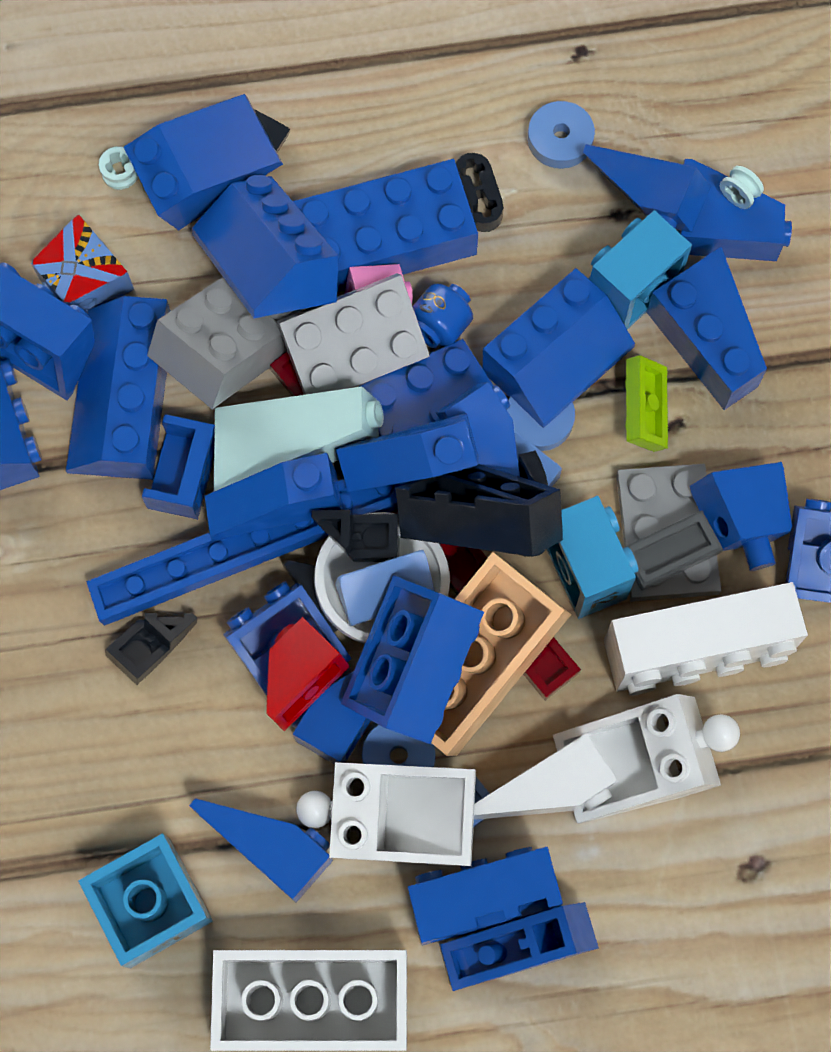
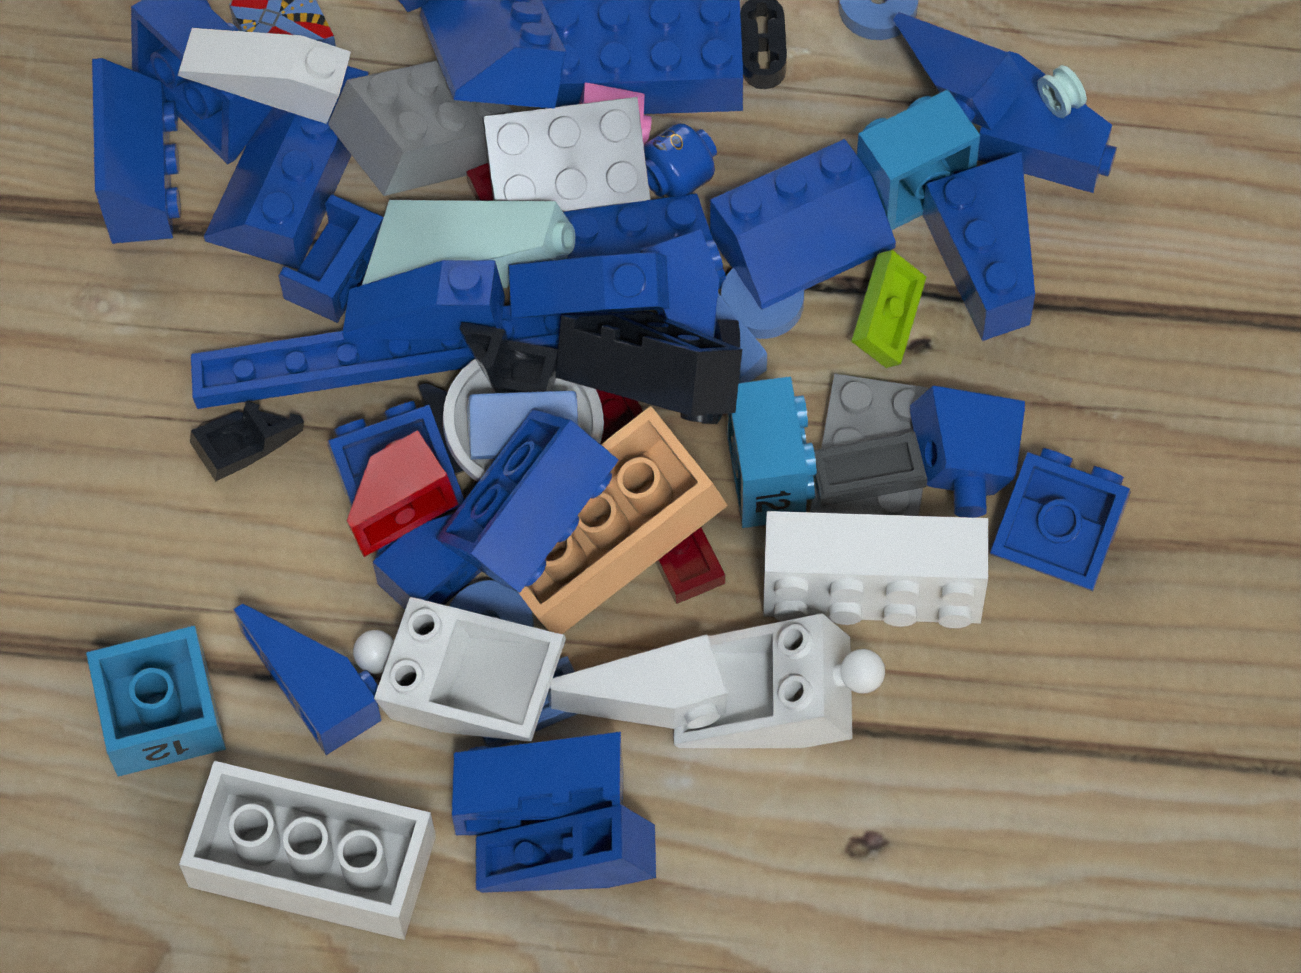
camera: 15 degrees right, 10 degrees down
(86, 323) = (268, 68): none -> white slope

